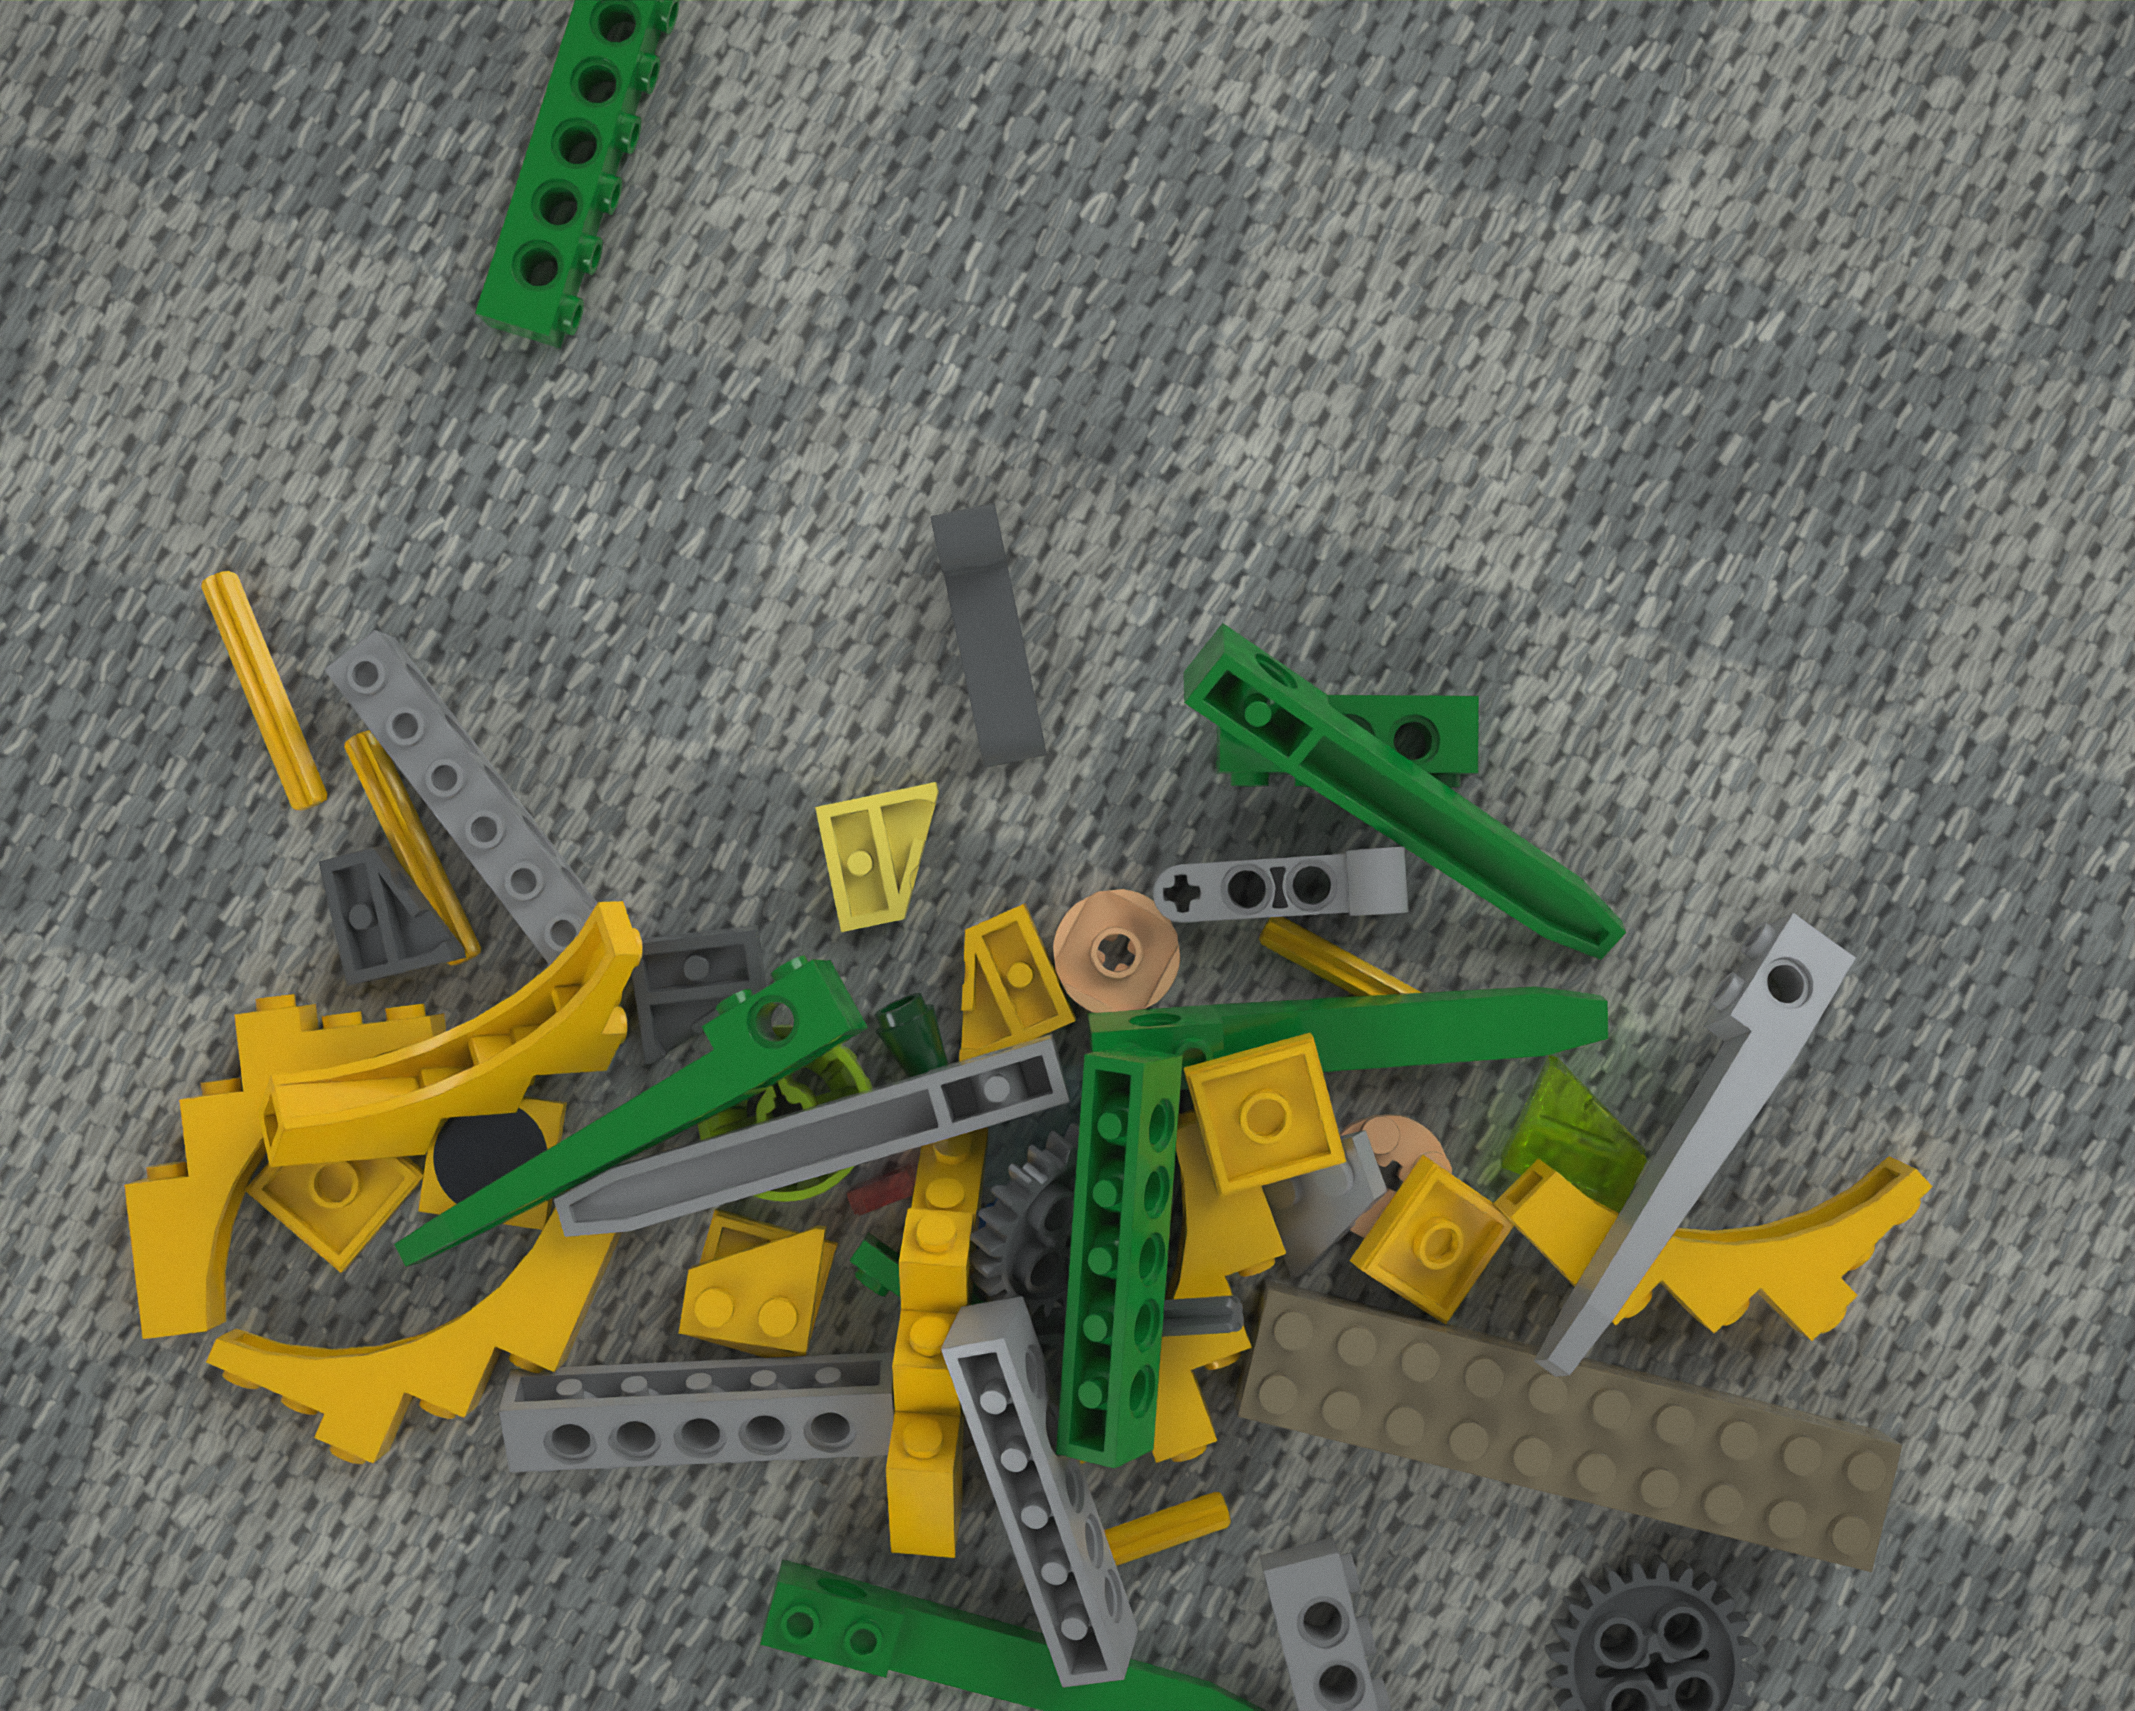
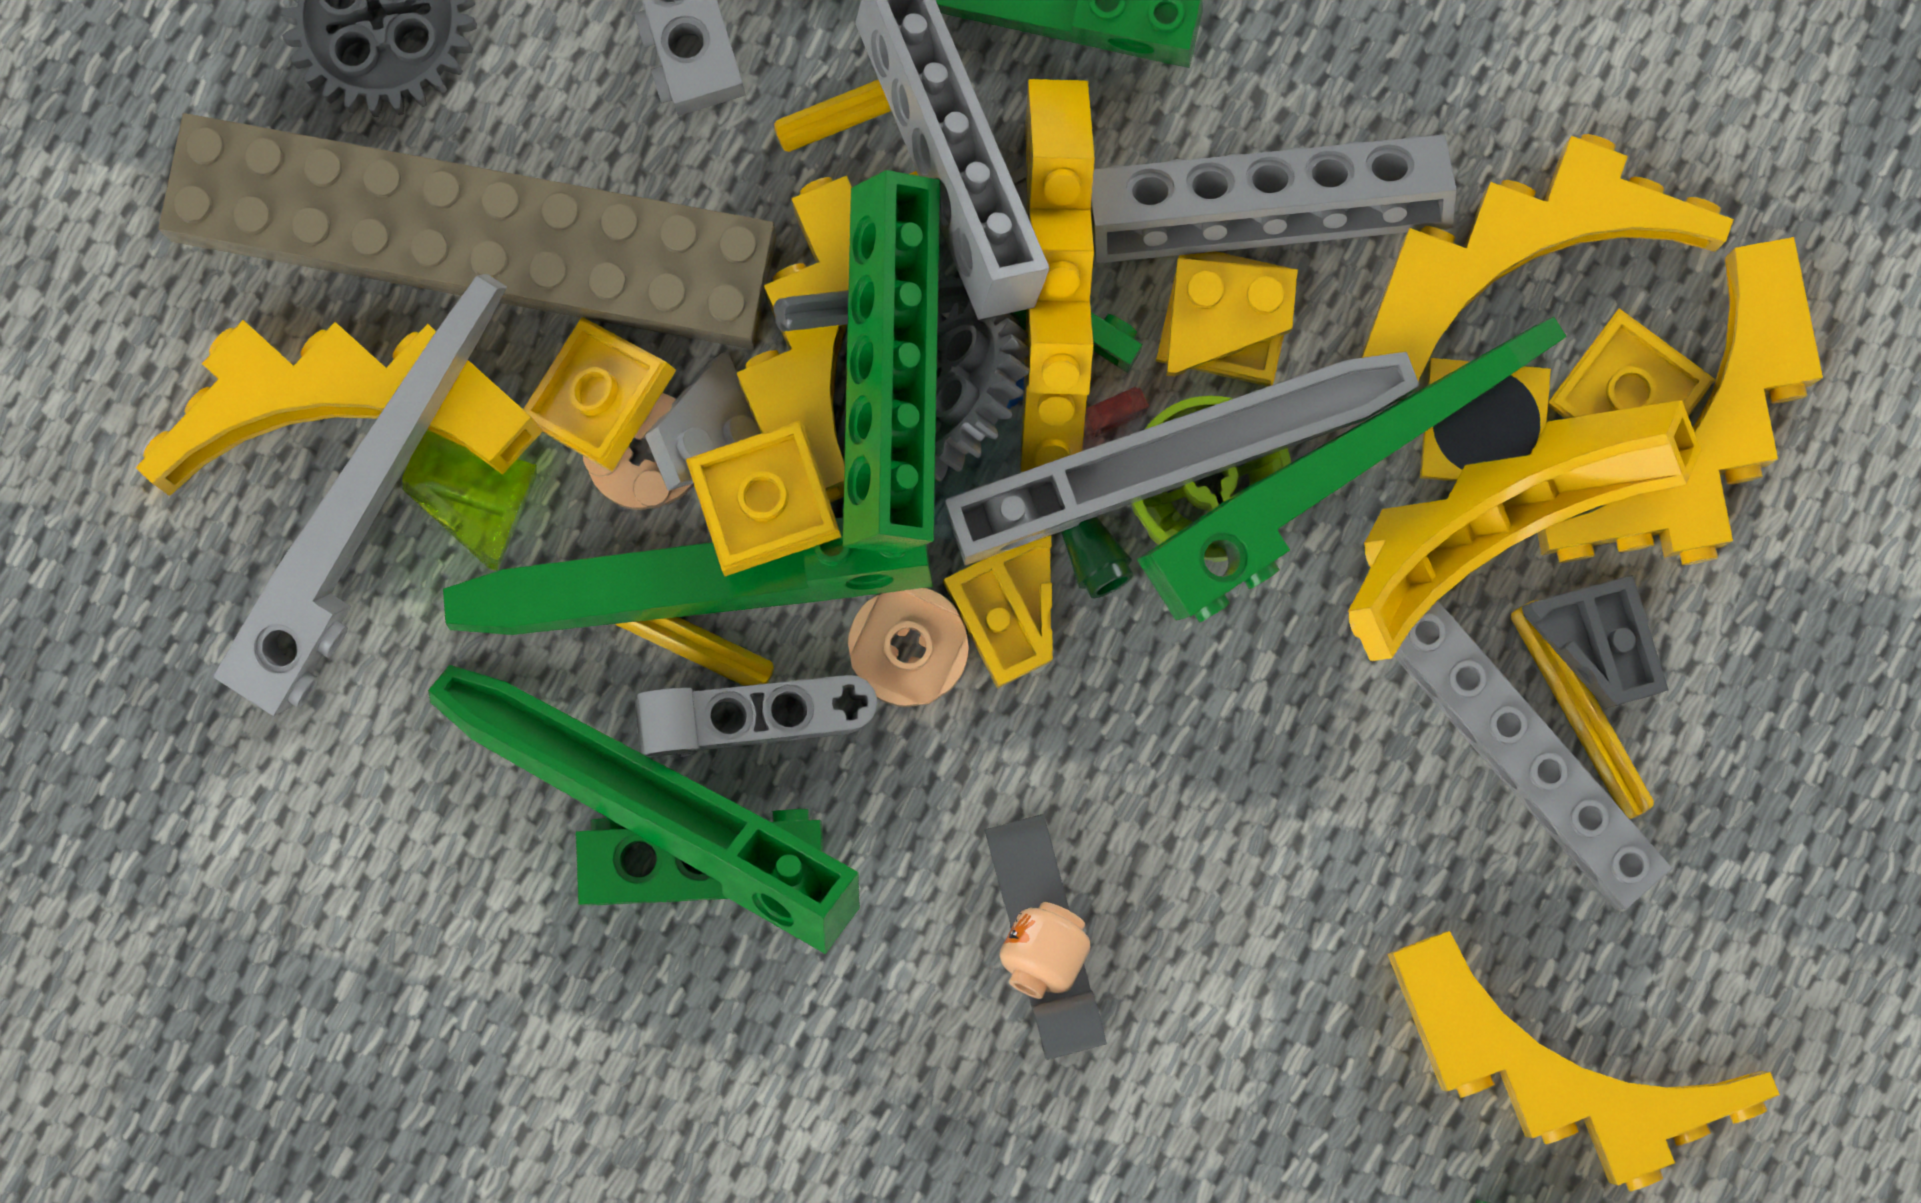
camera: 175 degrees right, 5 degrees down
(264, 690) = (1734, 851): yellow axle -> none
(397, 417) = (1627, 1121): none -> yellow arch
(685, 980) = (1307, 595): dark grey wing -> none
(876, 852) = (1141, 727): light yellow wing -> none
(989, 617) = (1045, 950): none -> light nougat head

